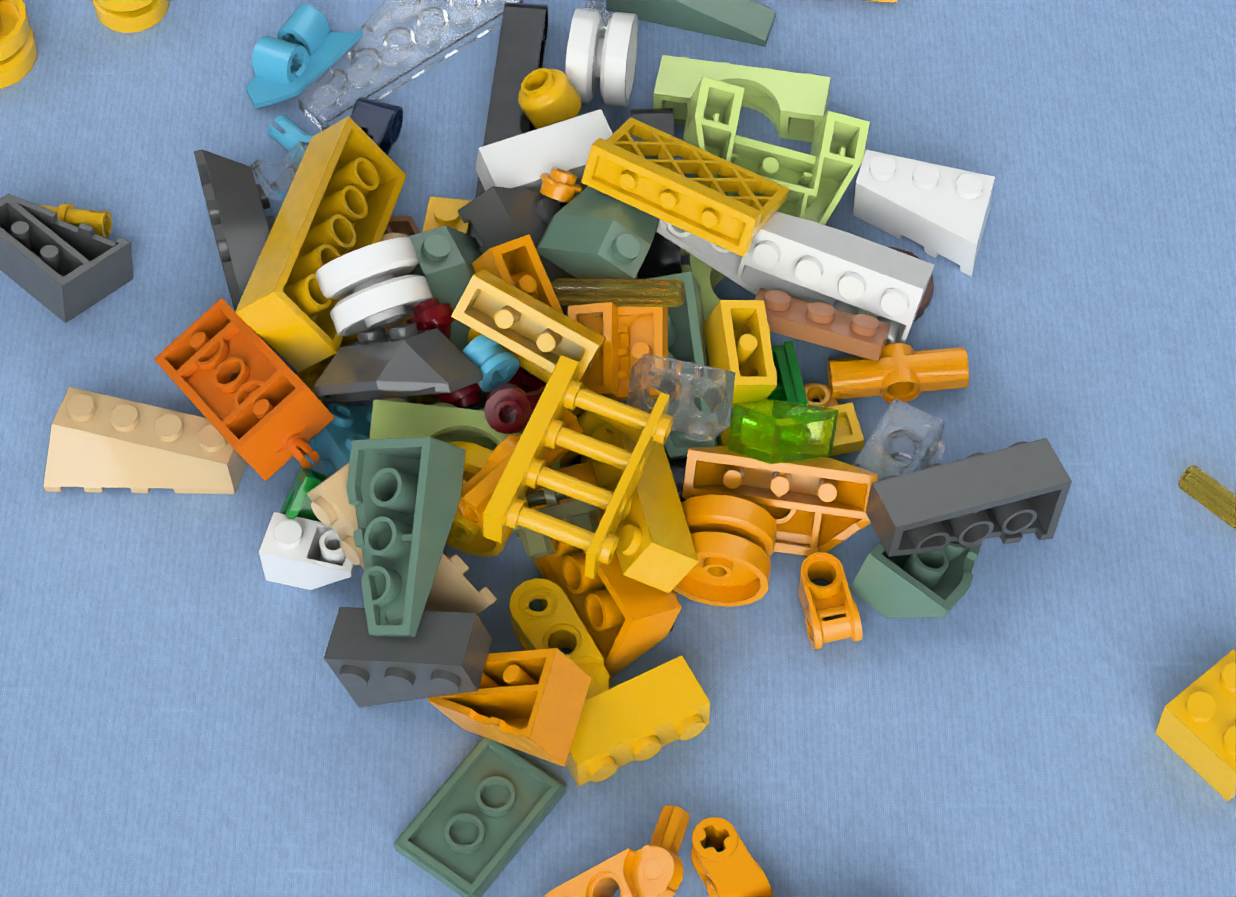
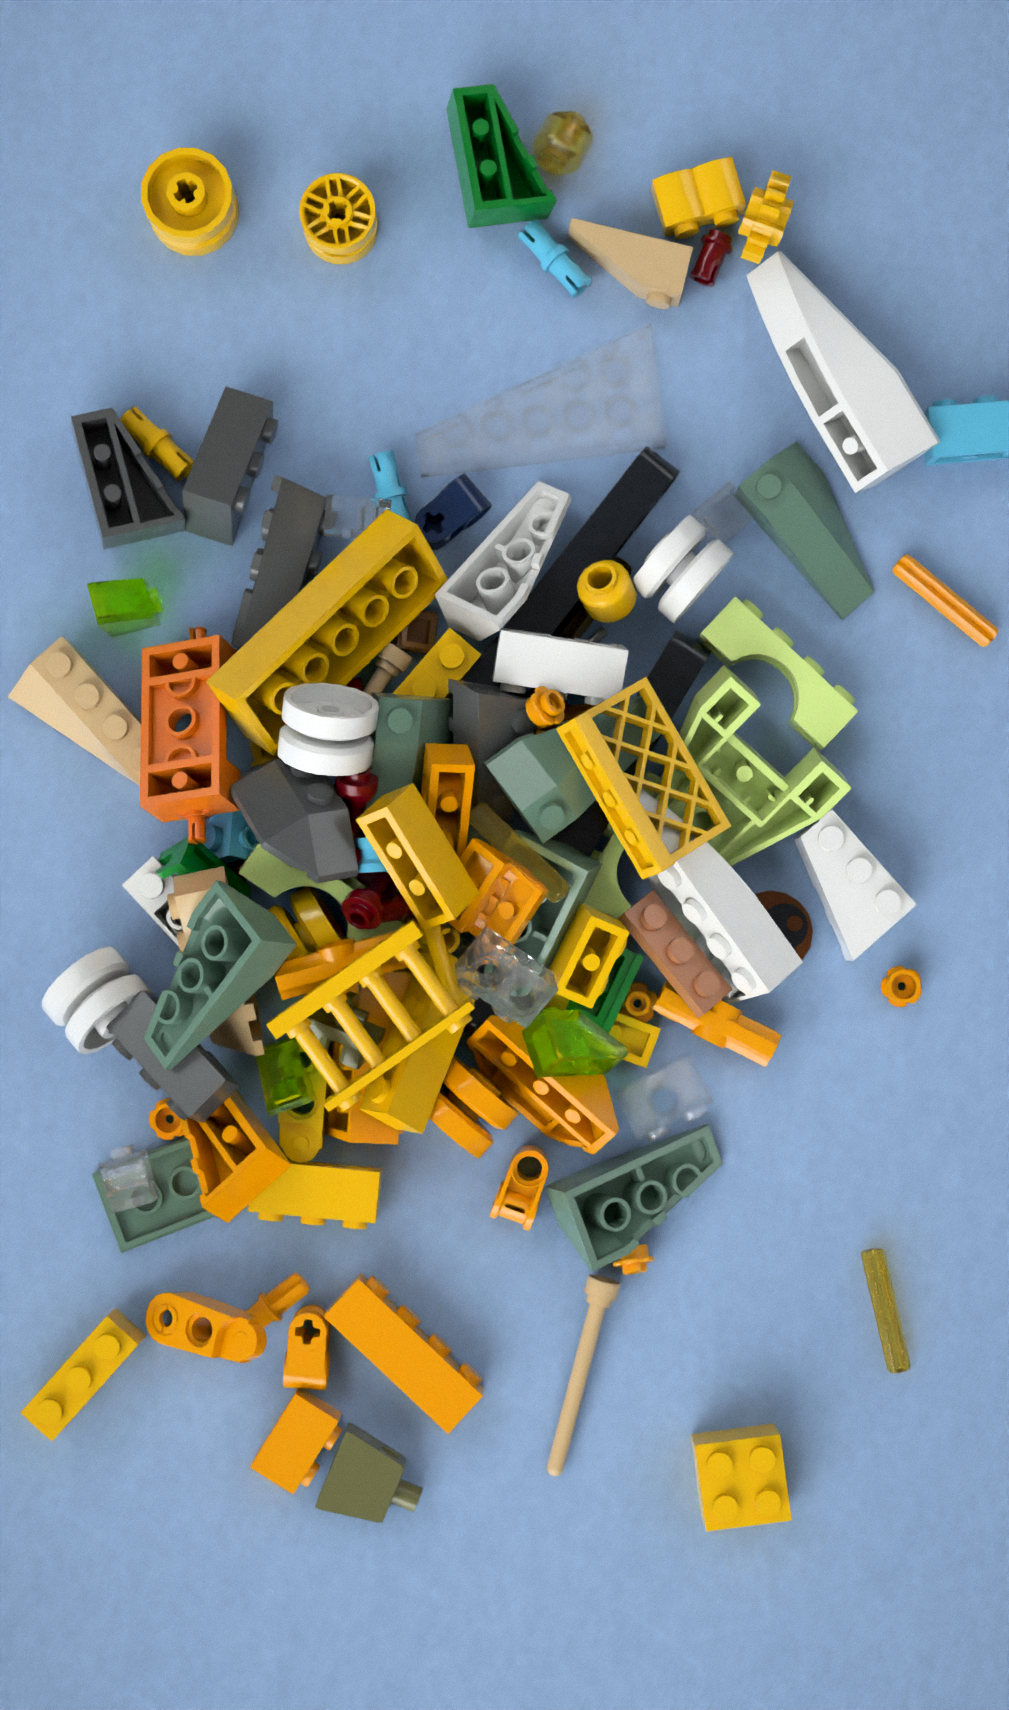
camera: 30 degrees right, 30 degrees up
(114, 344) = (125, 605): none -> clear neon green slope
(146, 200) = (228, 465): none -> dark grey wedge
(287, 663) = (91, 996): none -> white wheel
(296, 57) = (440, 388): medium azure panel -> none
(436, 809) = (128, 1178): none -> clear brick
(440, 736) = (158, 1121): none -> light orange plate
(444, 140) = (504, 566): none -> white wedge
(534, 616) = (284, 1077): none -> clear neon green slope
(826, 812) = (404, 1352): none -> light orange brick
(971, 500) = (670, 1194): dark grey wedge -> none
(971, 652) = (600, 1294): none -> tan piece
(978, 604) = (636, 1261): none -> light orange plate
(1035, 252) = (912, 983): none -> light orange plate

